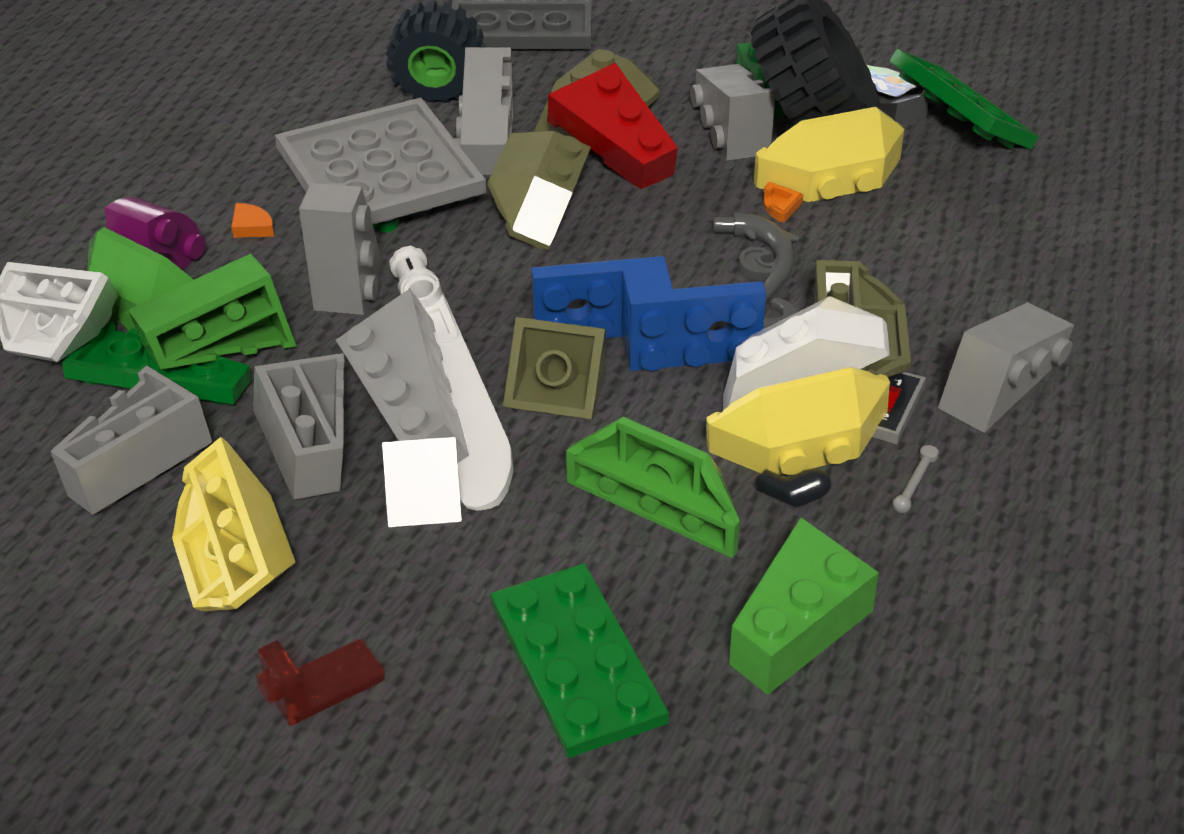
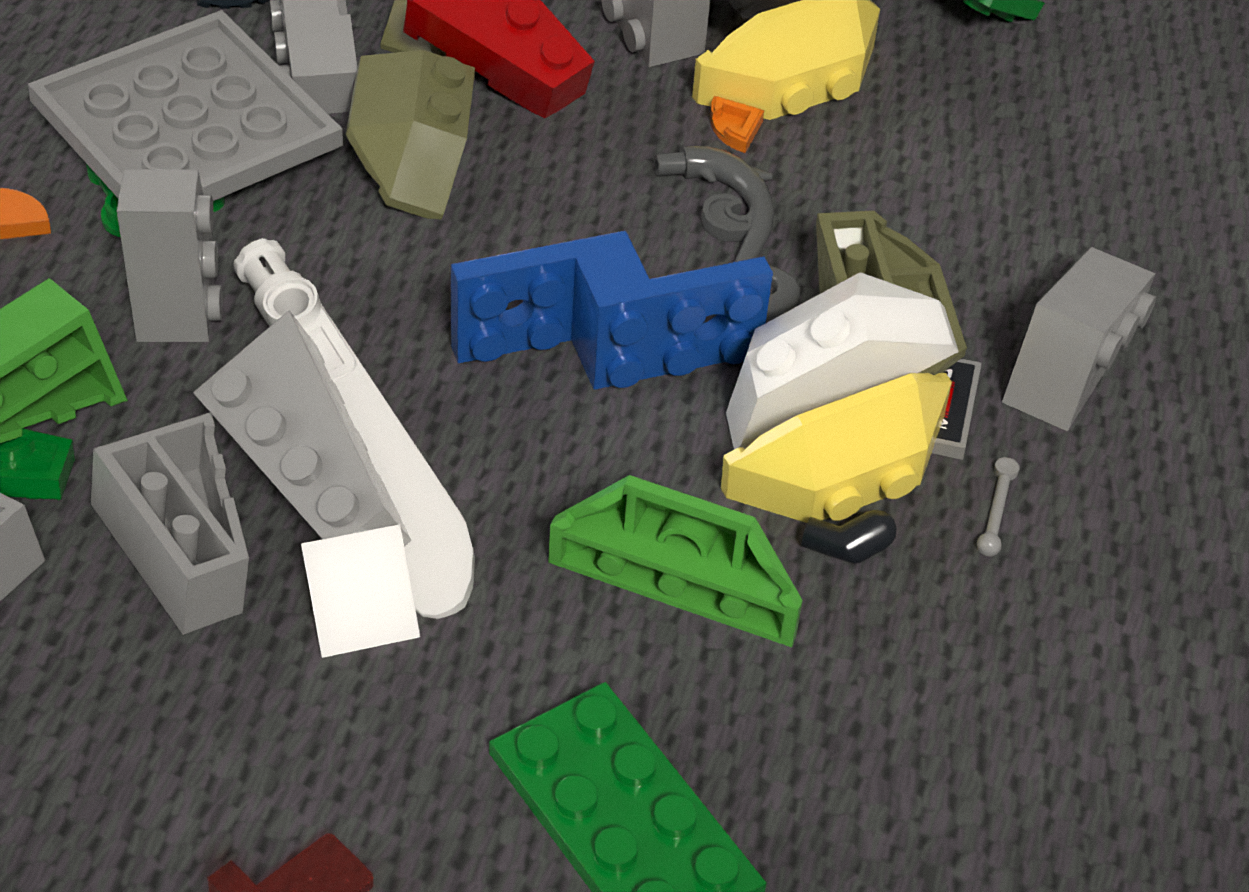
camera: 15 degrees left, 5 degrees up
(227, 531) = (107, 702): light yellow wedge -> none
(556, 368) = (501, 402): olive slope -> none
(800, 607) = (904, 711): bright green wedge -> none

